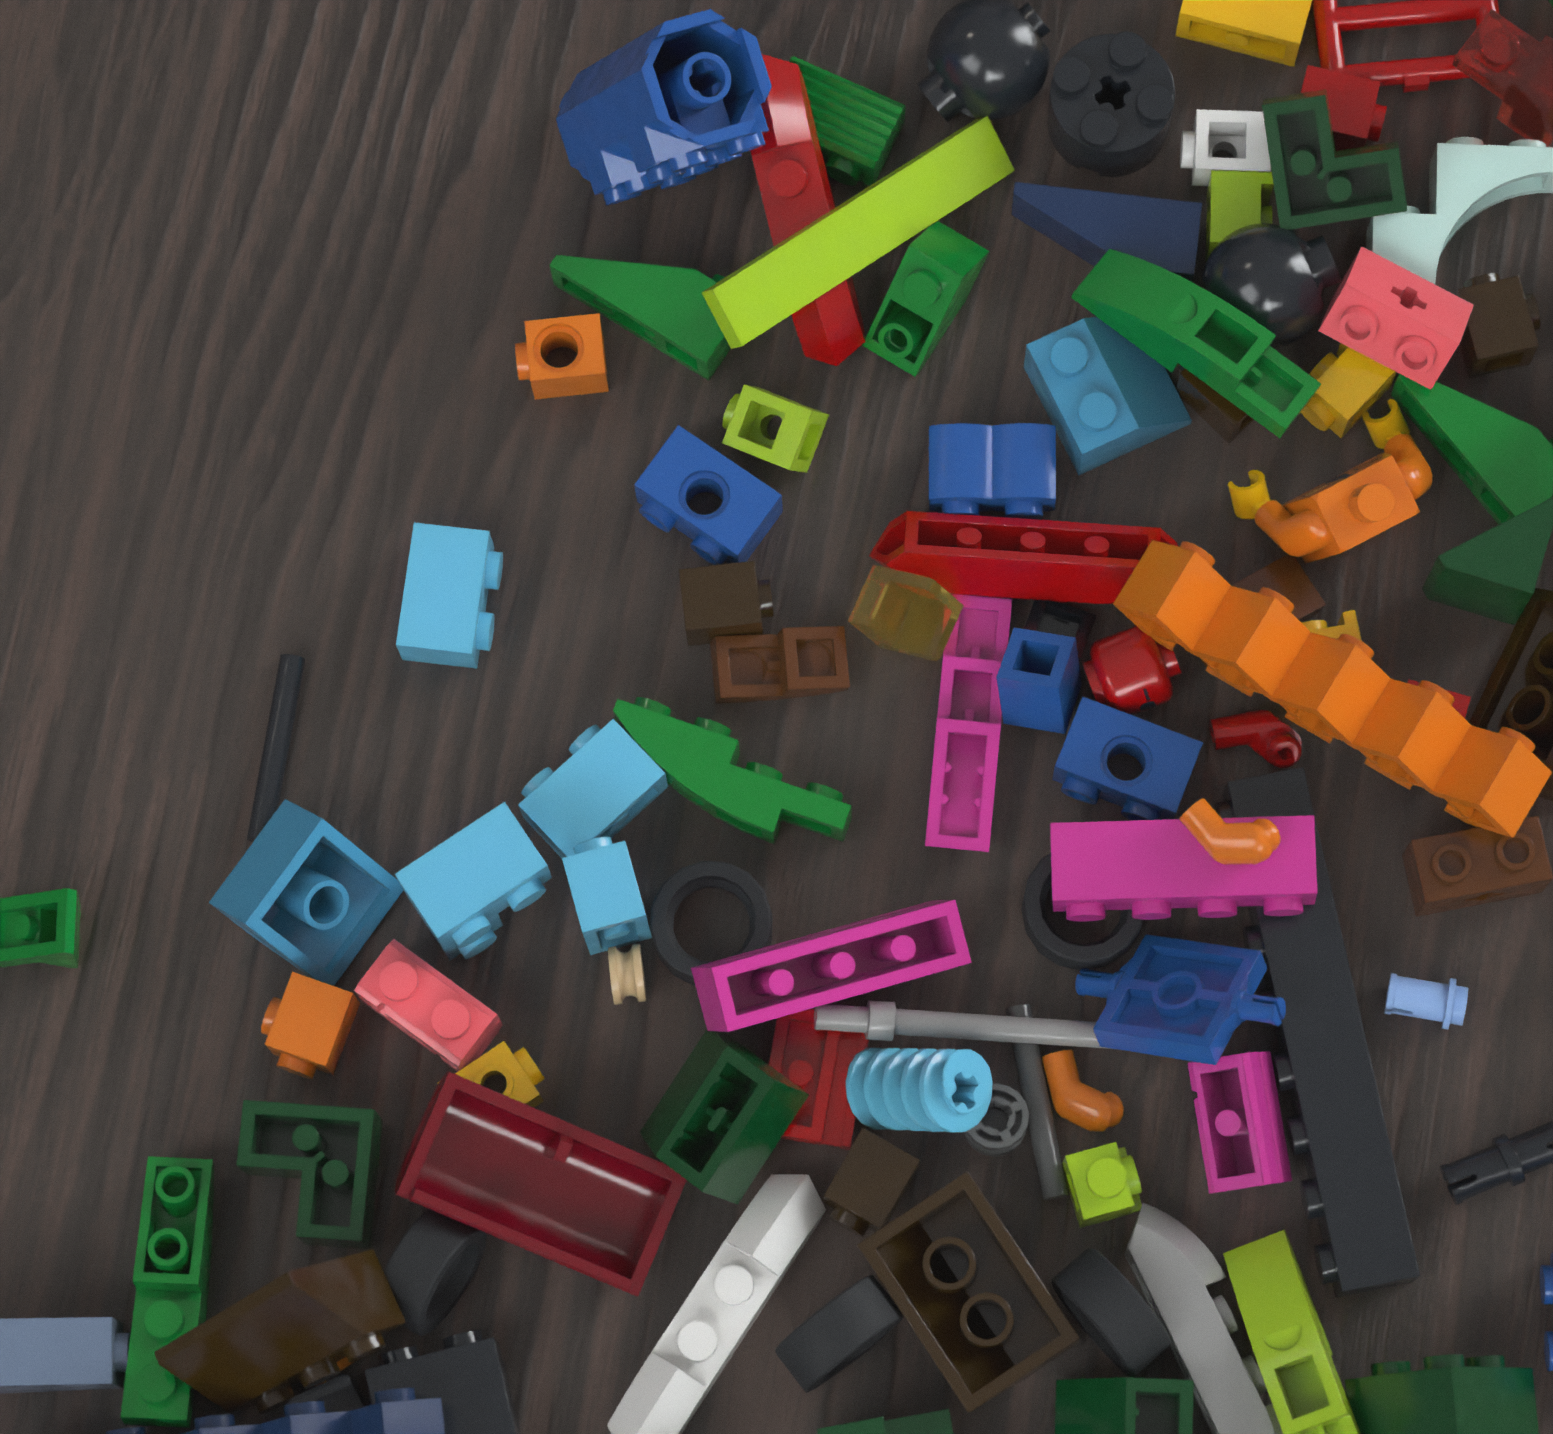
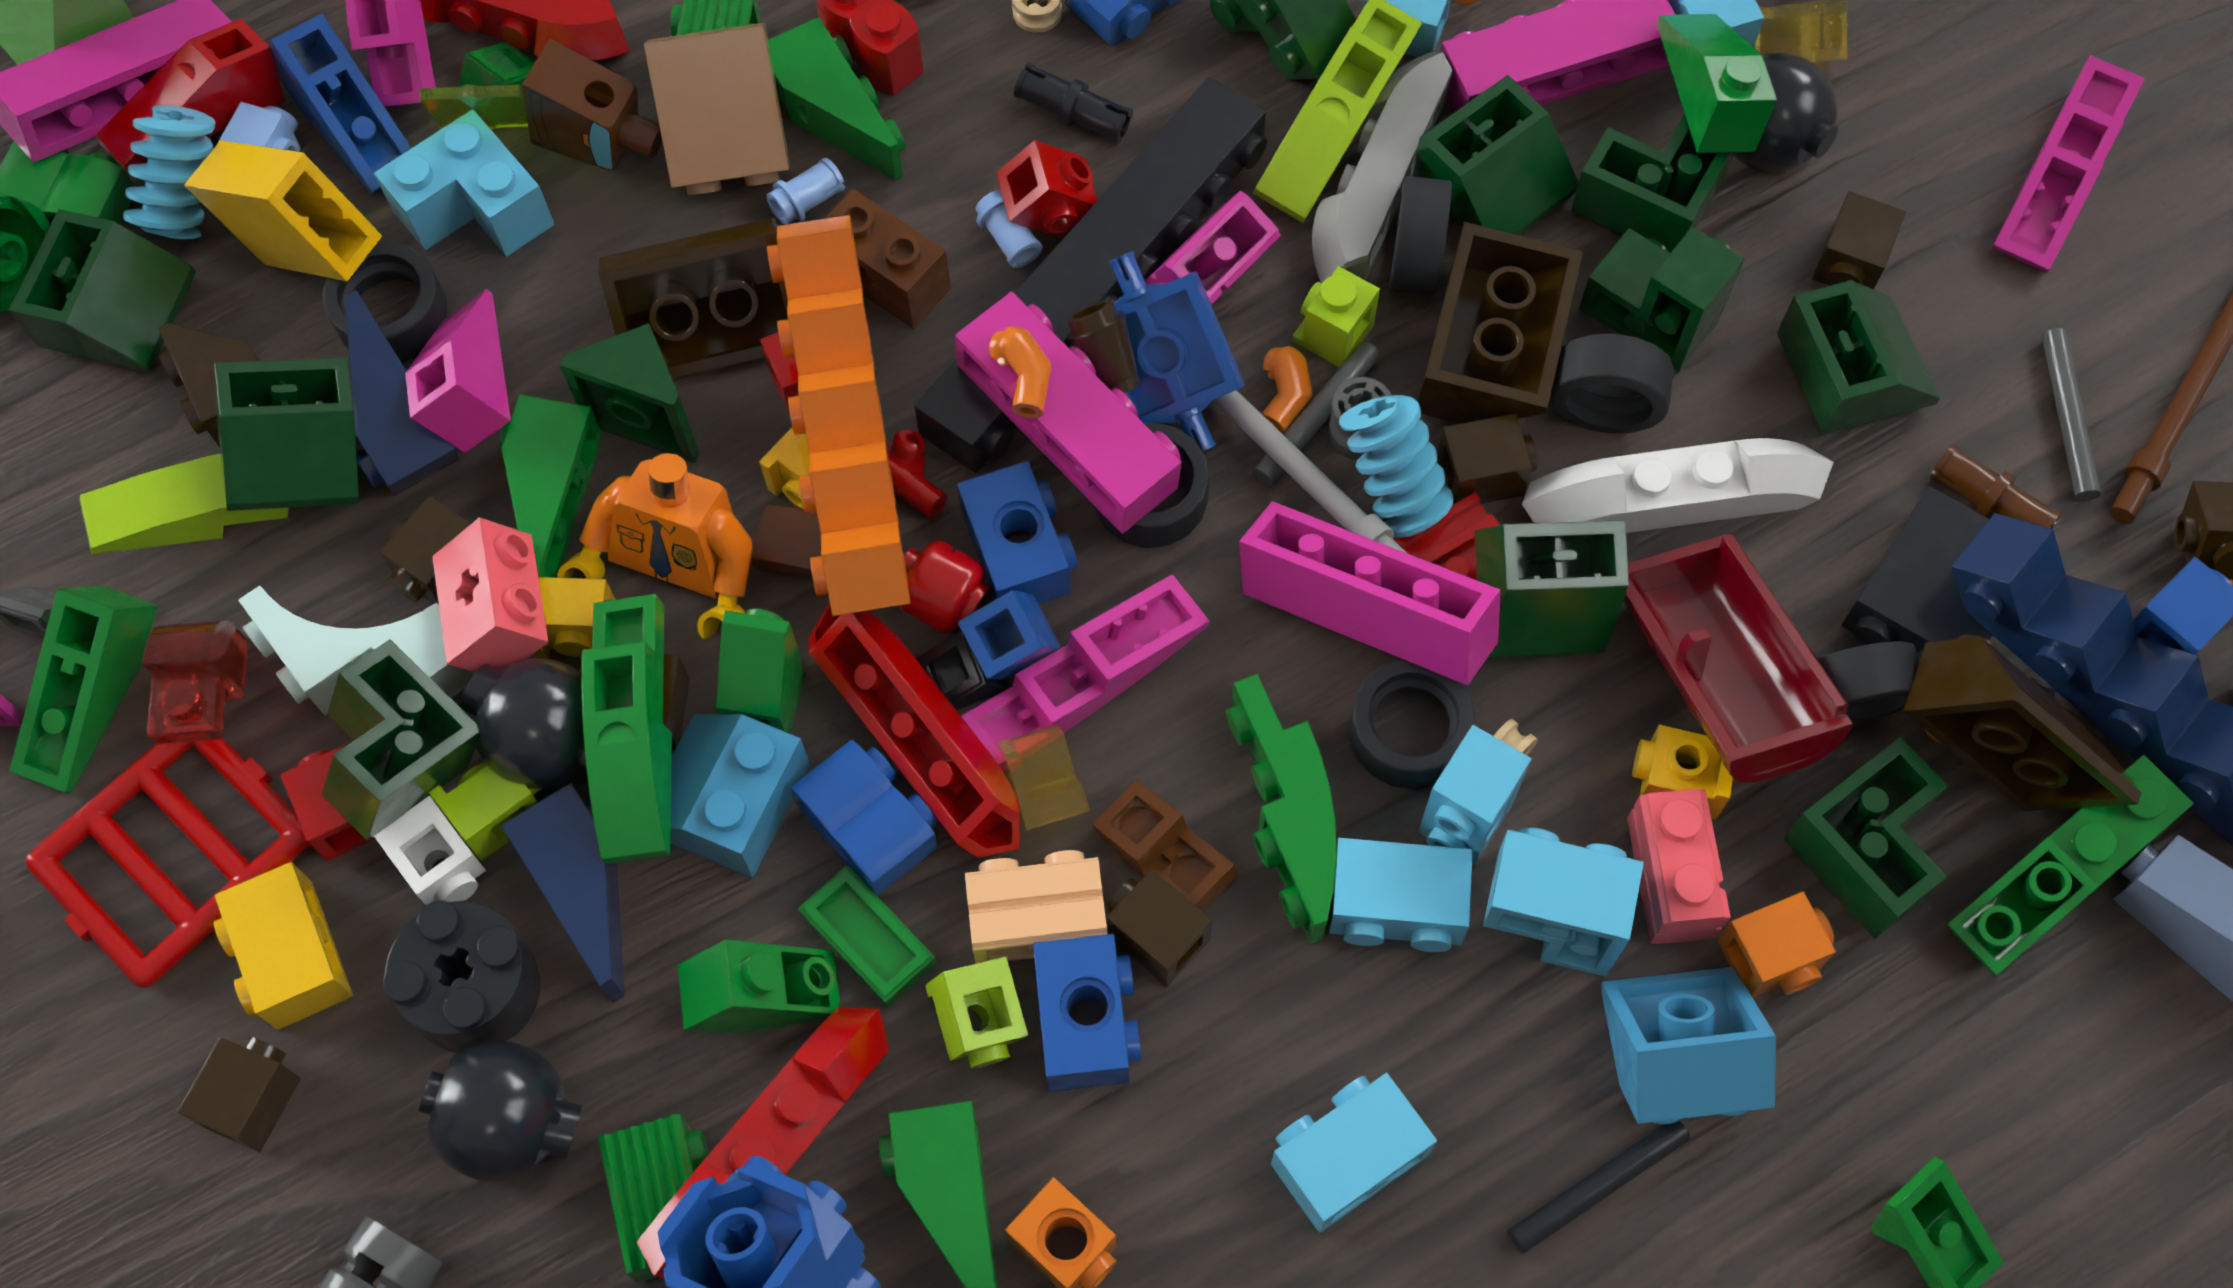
camera: 135 degrees left, 10 degrees down
(813, 531) = (1033, 904): none -> light nougat brick
(857, 232) = (756, 1062): lime tile -> none
(901, 405) = (867, 936): none -> green tile
(1168, 475) = (759, 668): none -> green slope
(1217, 941) = (1105, 340): none -> dark brown cone
(1424, 1049) = (1047, 188): none -> red brick

